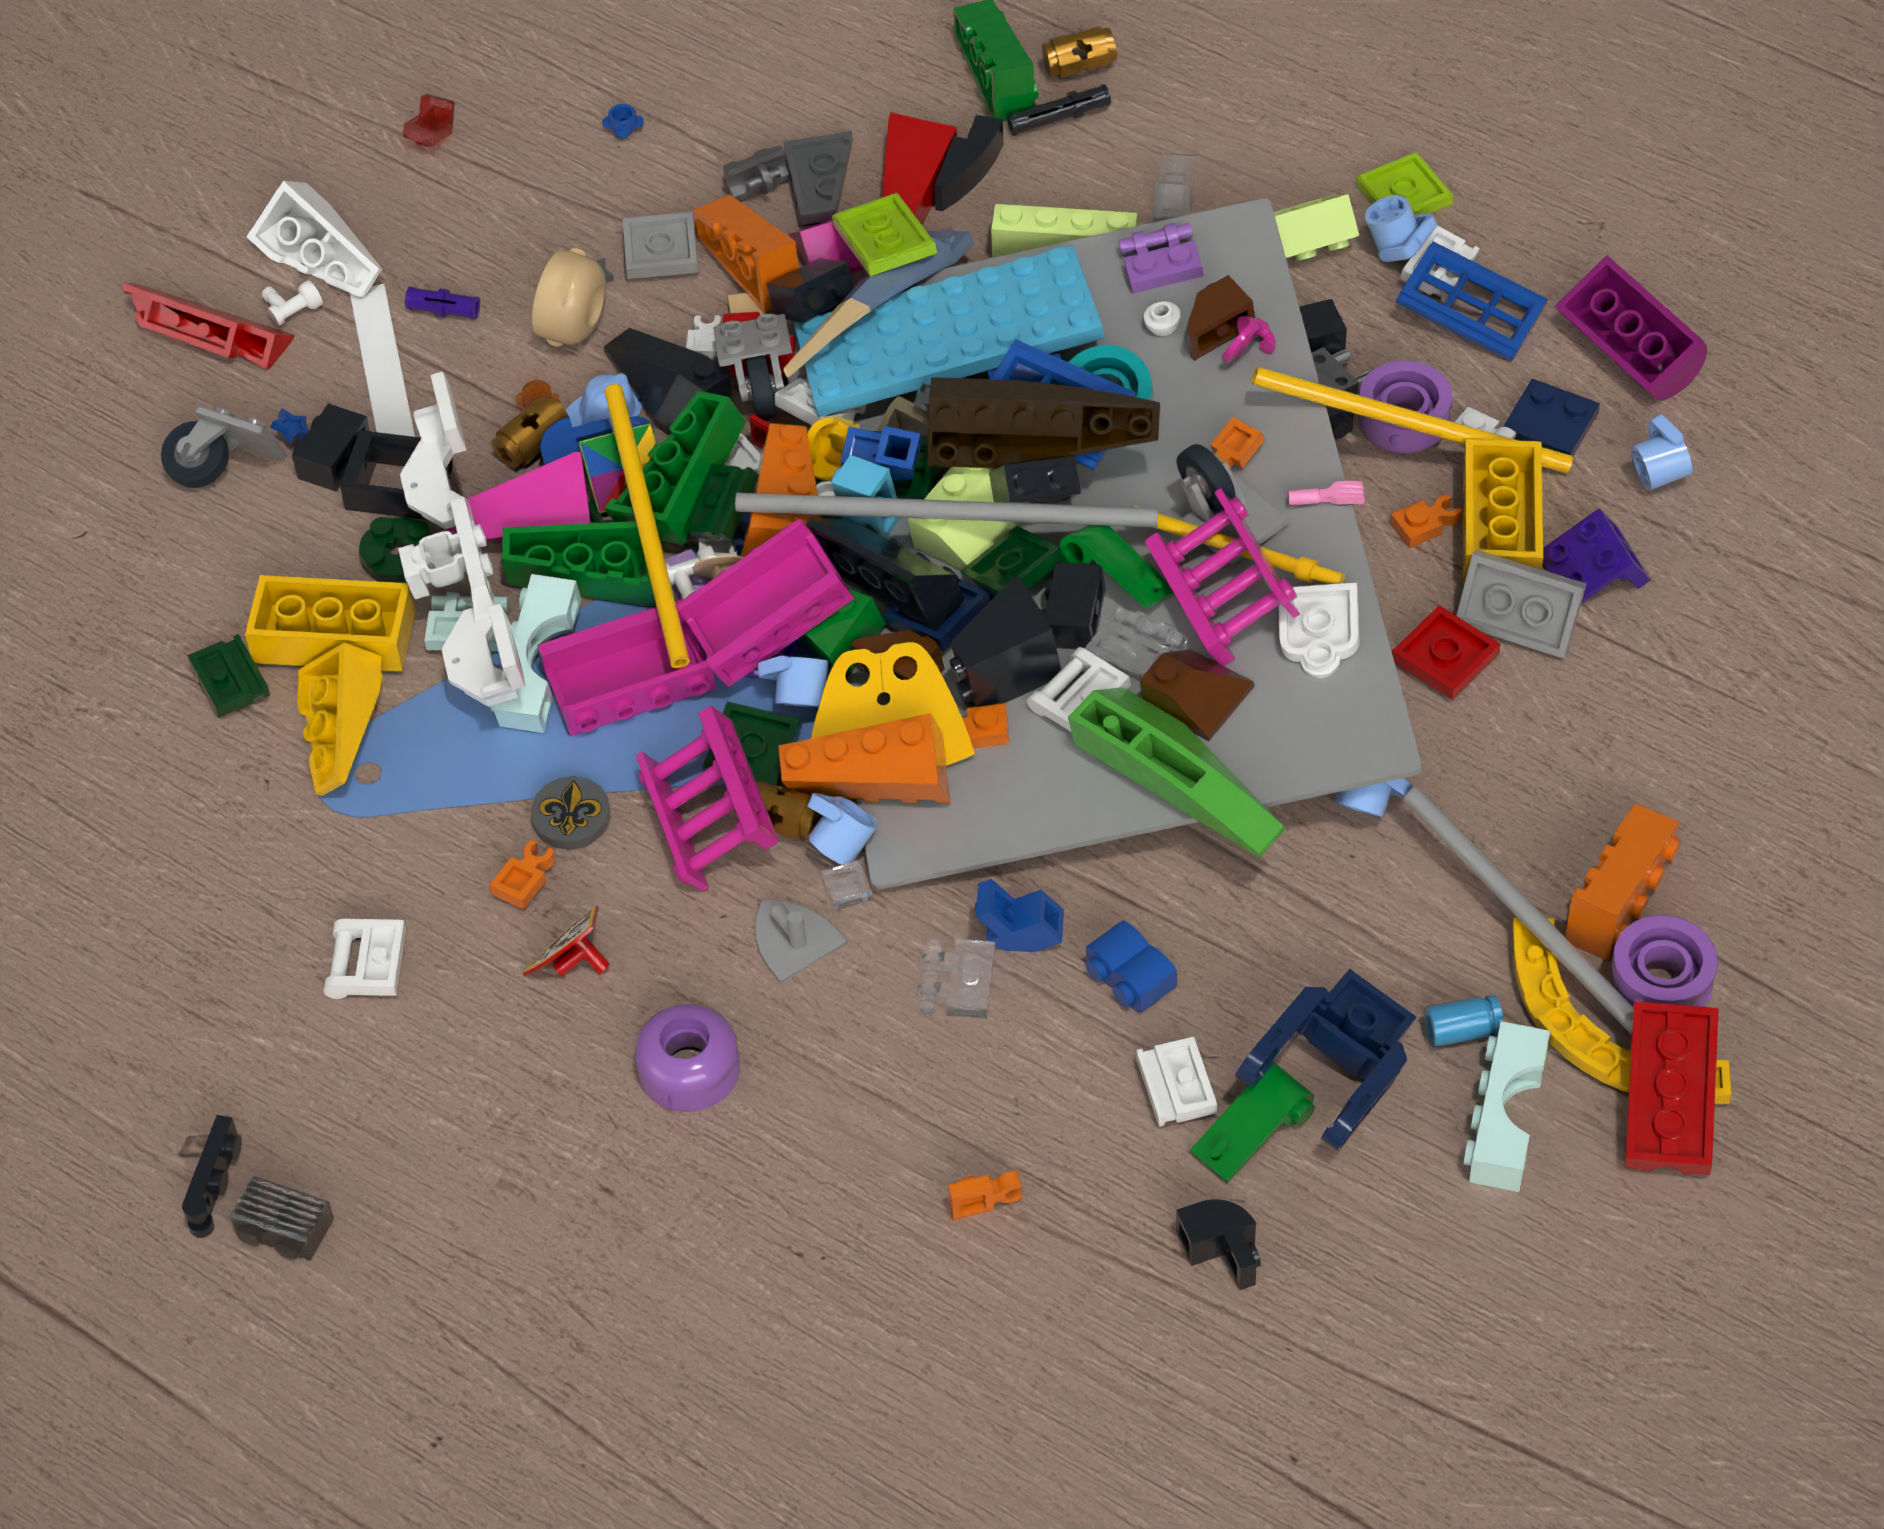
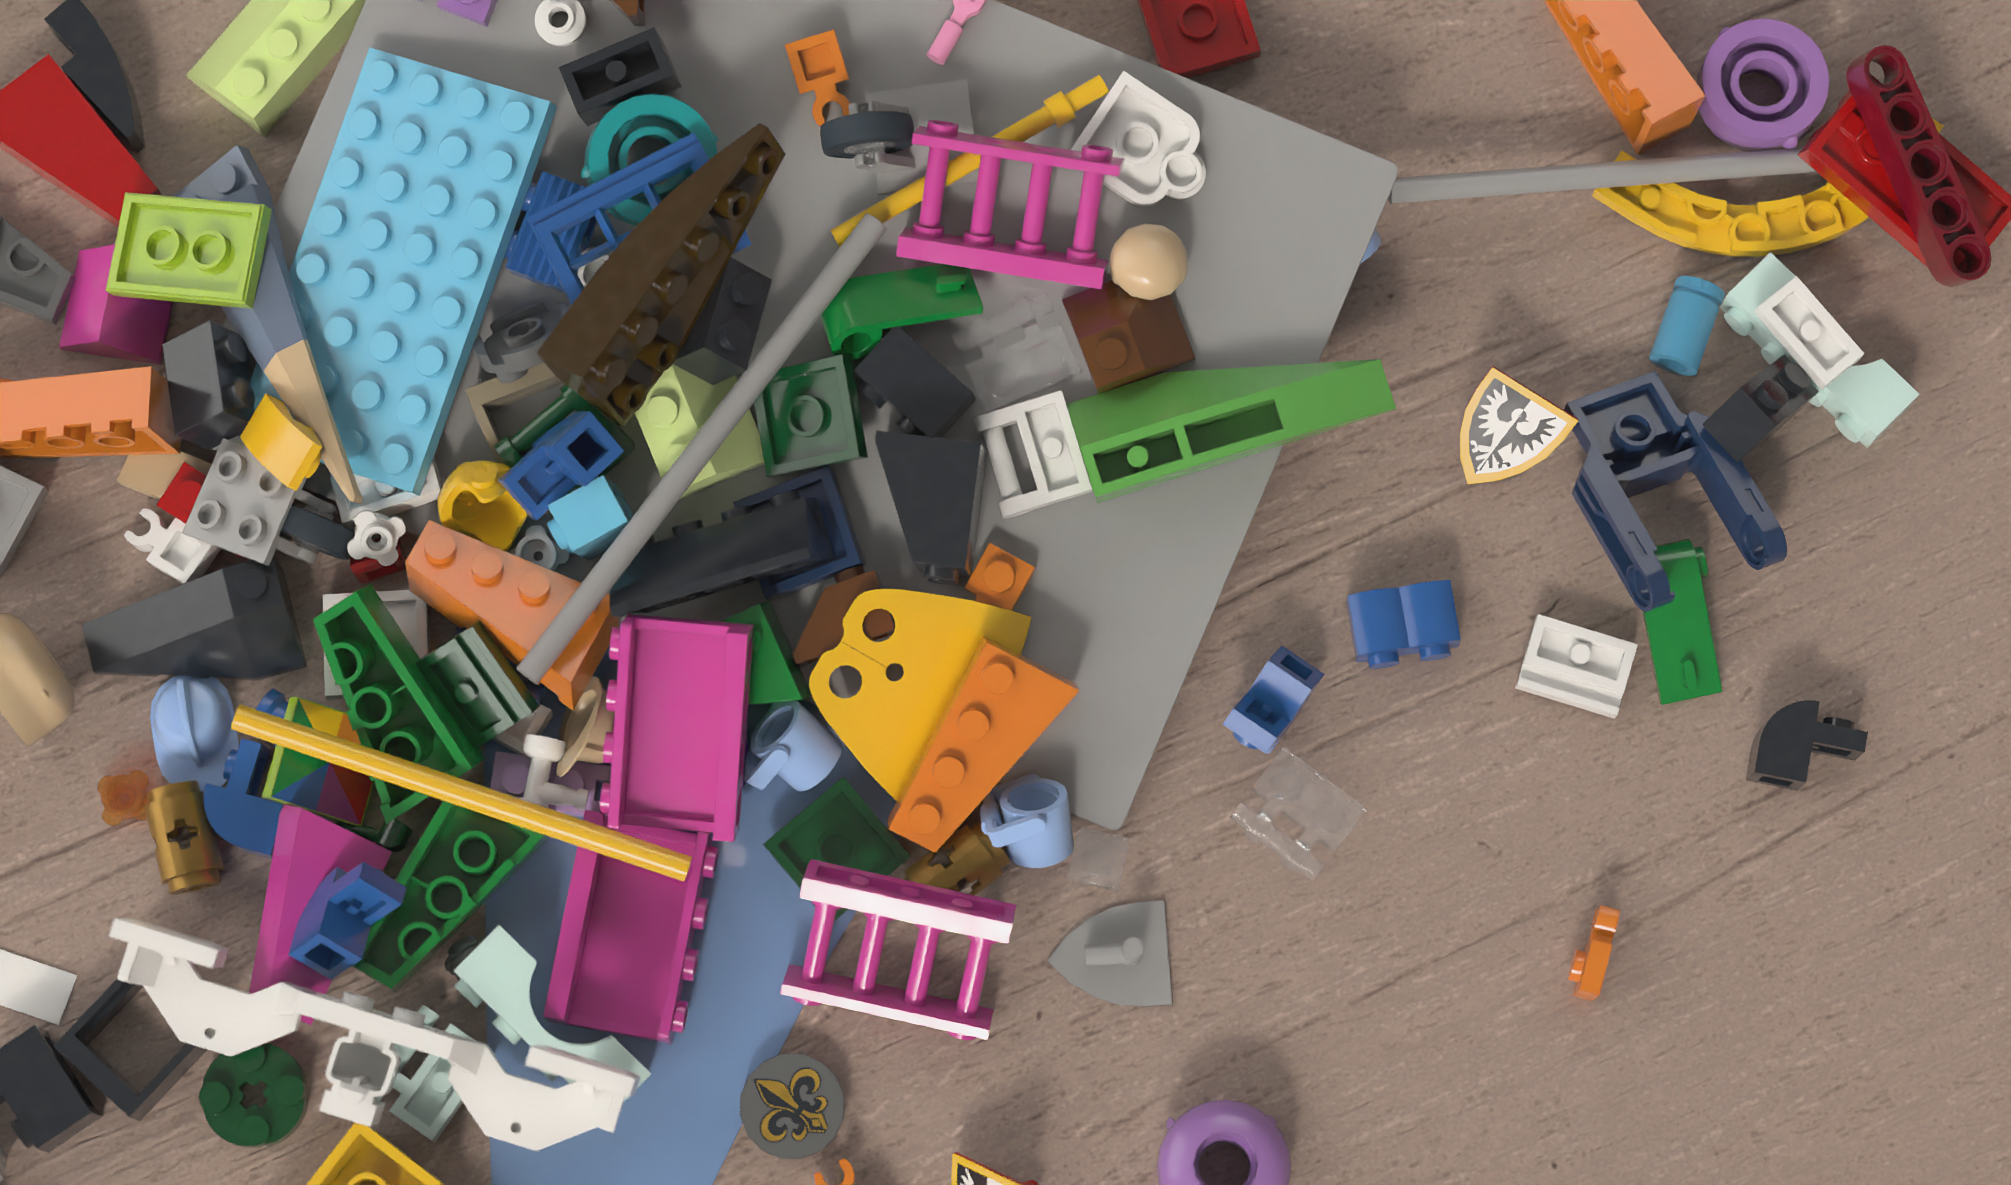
camera: 60 degrees left, 25 degrees up
(526, 506) = (339, 918): none -> blue brick
(782, 401) = (371, 523): none -> white plate
(794, 326) = (282, 443): none -> yellow slope
(1160, 351) = (619, 73): none -> black brick
(1246, 666) = (1149, 261): none -> tan hair
(1306, 947) = (1508, 429): none -> shield
(1434, 1078) = (1760, 407): none -> black brick
(1507, 1073) = (1809, 333): none -> white plate
(1670, 1086) = (1940, 180): none -> dark red beam

